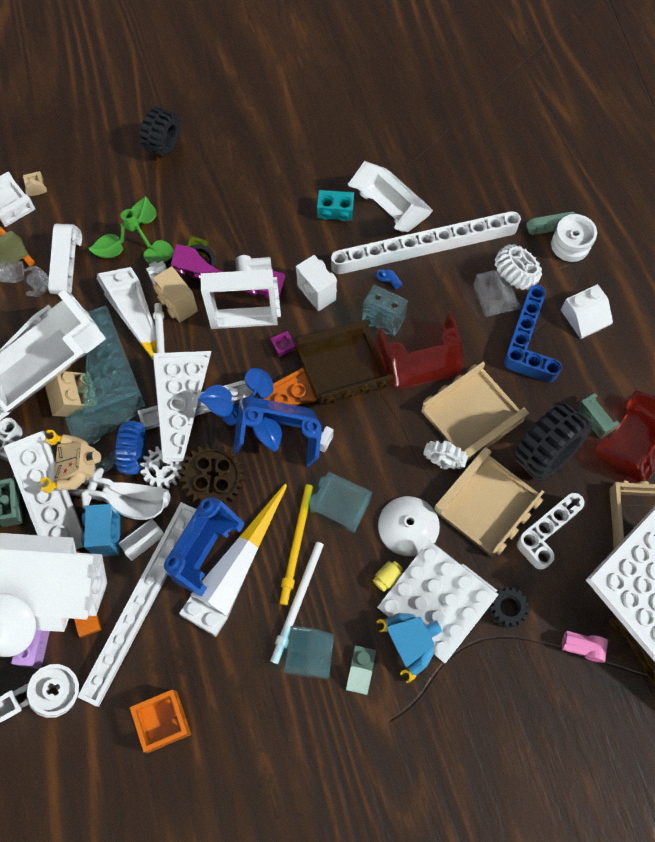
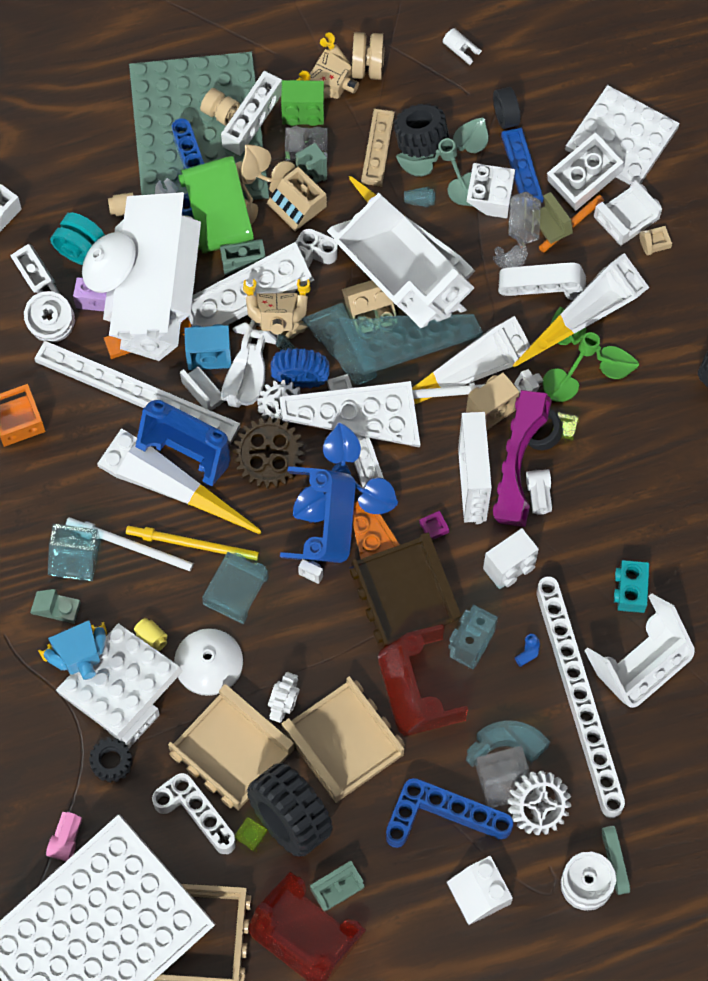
camera: 90 degrees right, 0 degrees up
(80, 211) = (607, 292): none -> white plate
(461, 295) = (508, 734): none -> clear light blue arch
(562, 484) = (250, 833): none -> clear neon green plate

